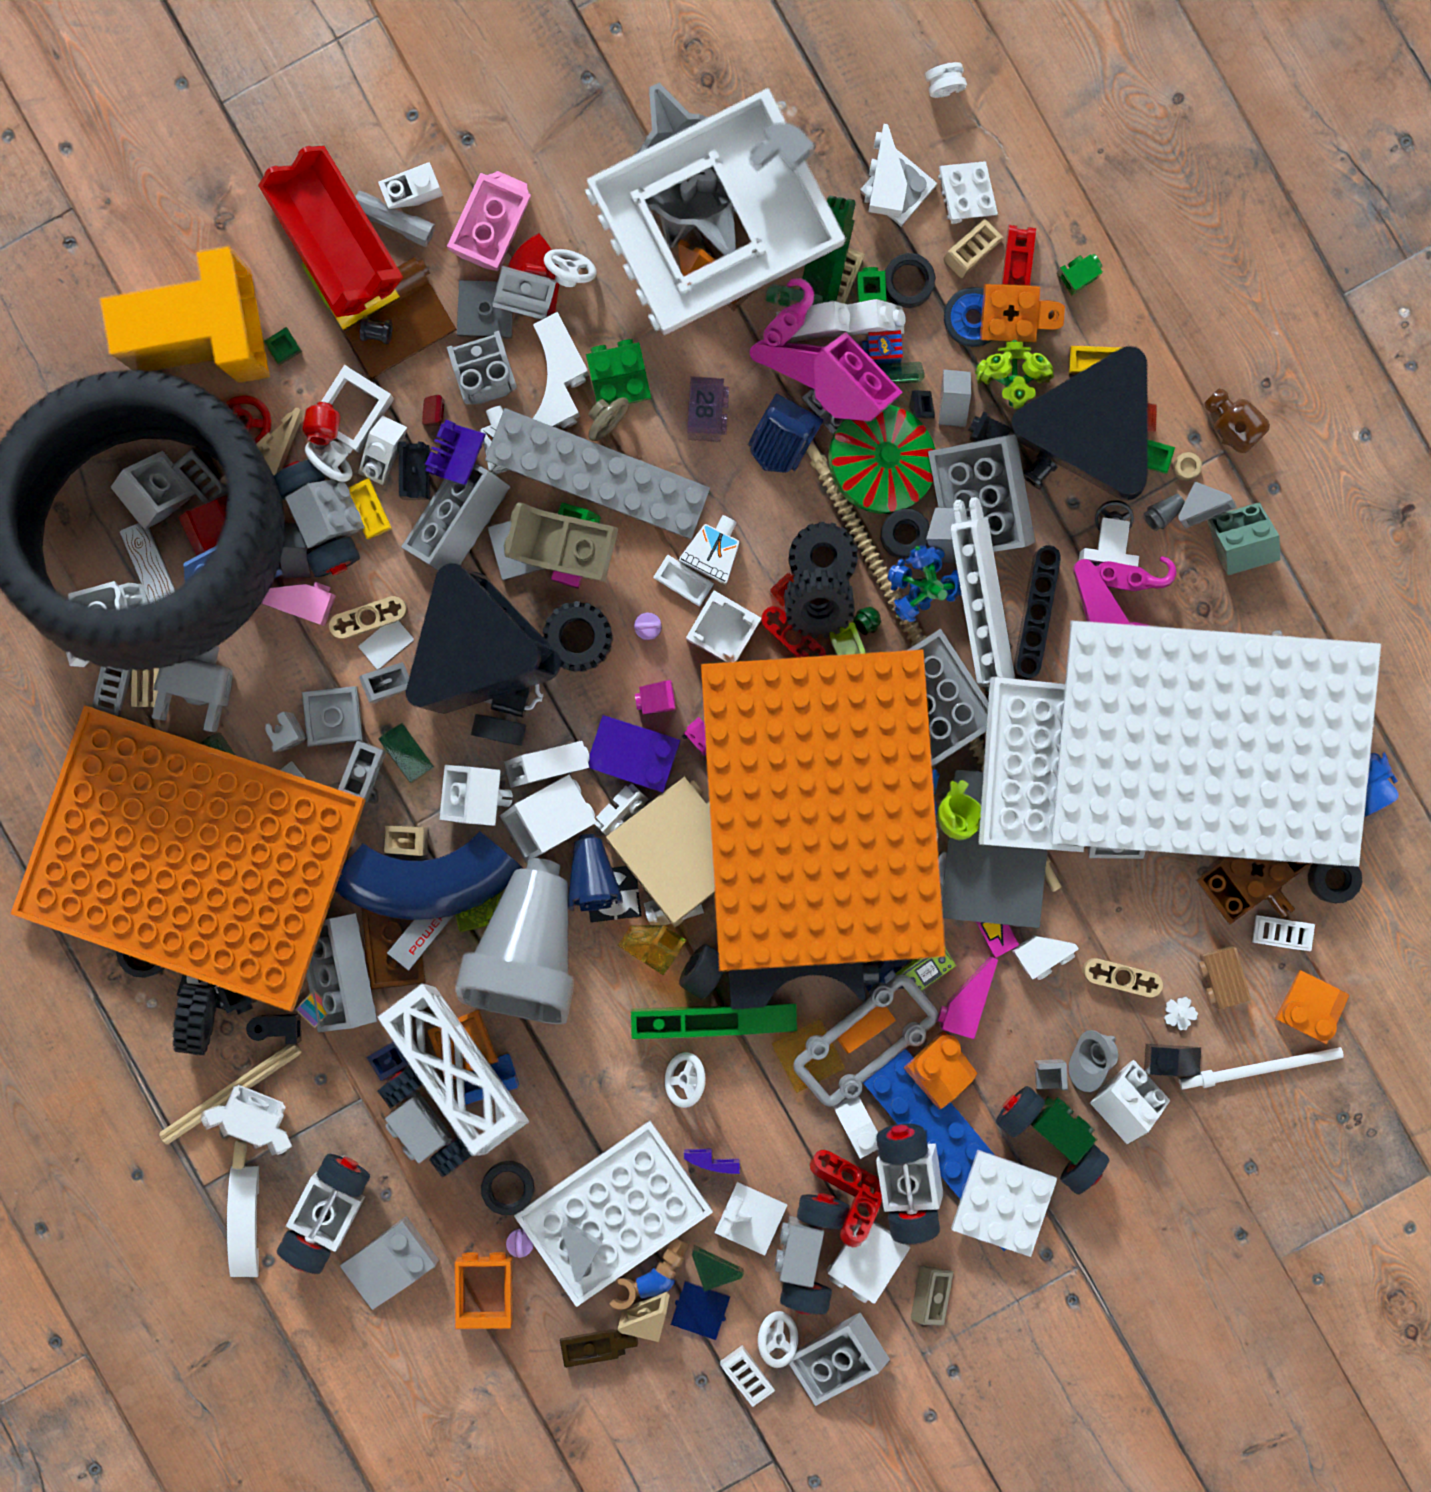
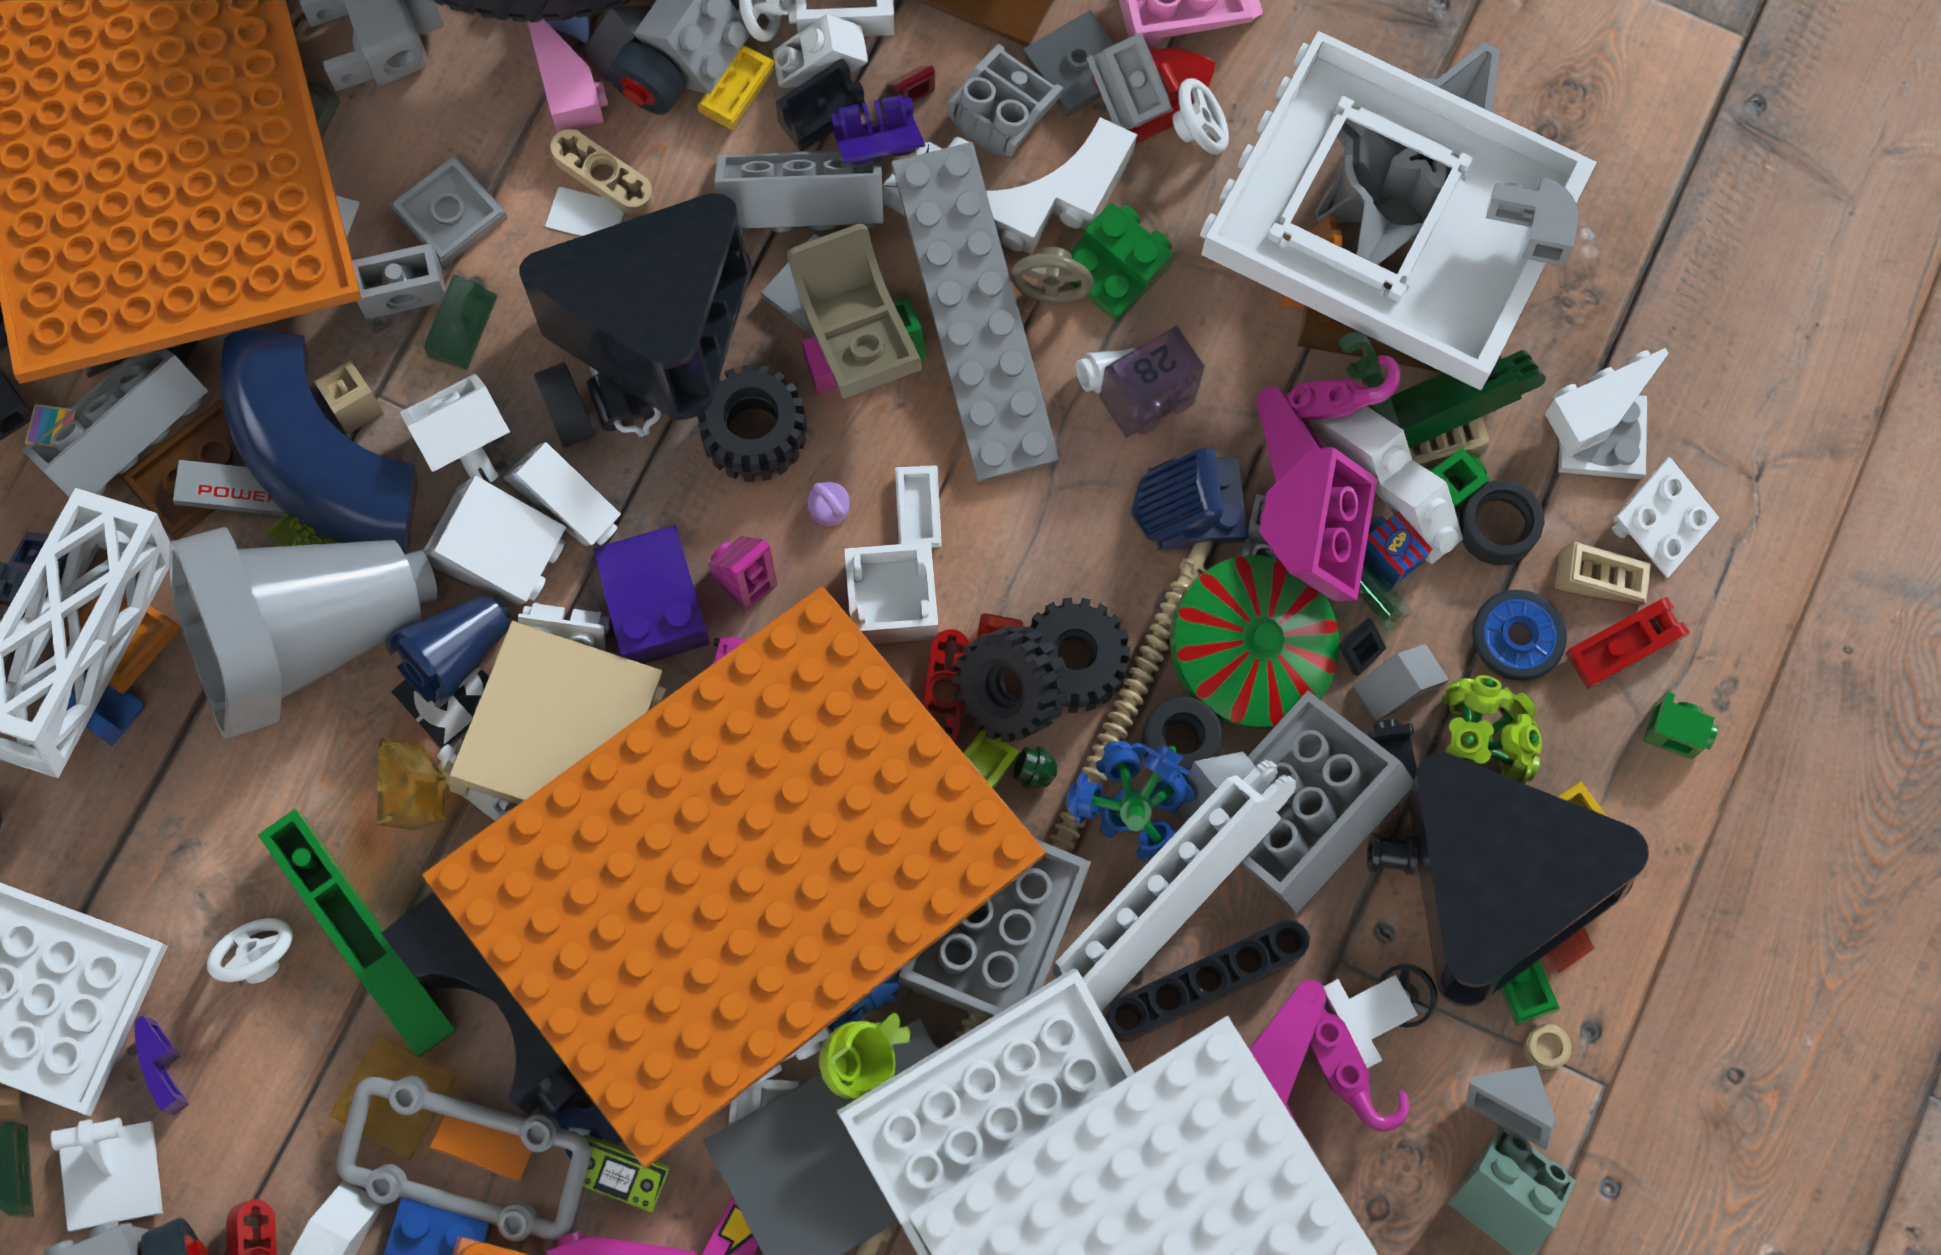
camera: 50 degrees right, 15 degrees down
(288, 734) = (386, 165): light grey hinge -> none
(385, 682) = (523, 230): light grey slope -> none
(676, 426) = (1092, 366): none -> white cone
(701, 972) = (401, 871): black tyre -> none
(713, 550) = (982, 515): white torso -> none
(945, 79) = (1776, 395): white wheel -> none
(1030, 313) = (1583, 695): orange plate -> none
(1163, 512) = (1463, 1056): dark grey cone -> none
(1238, 422) = (1656, 1068): reddish brown piece -> none

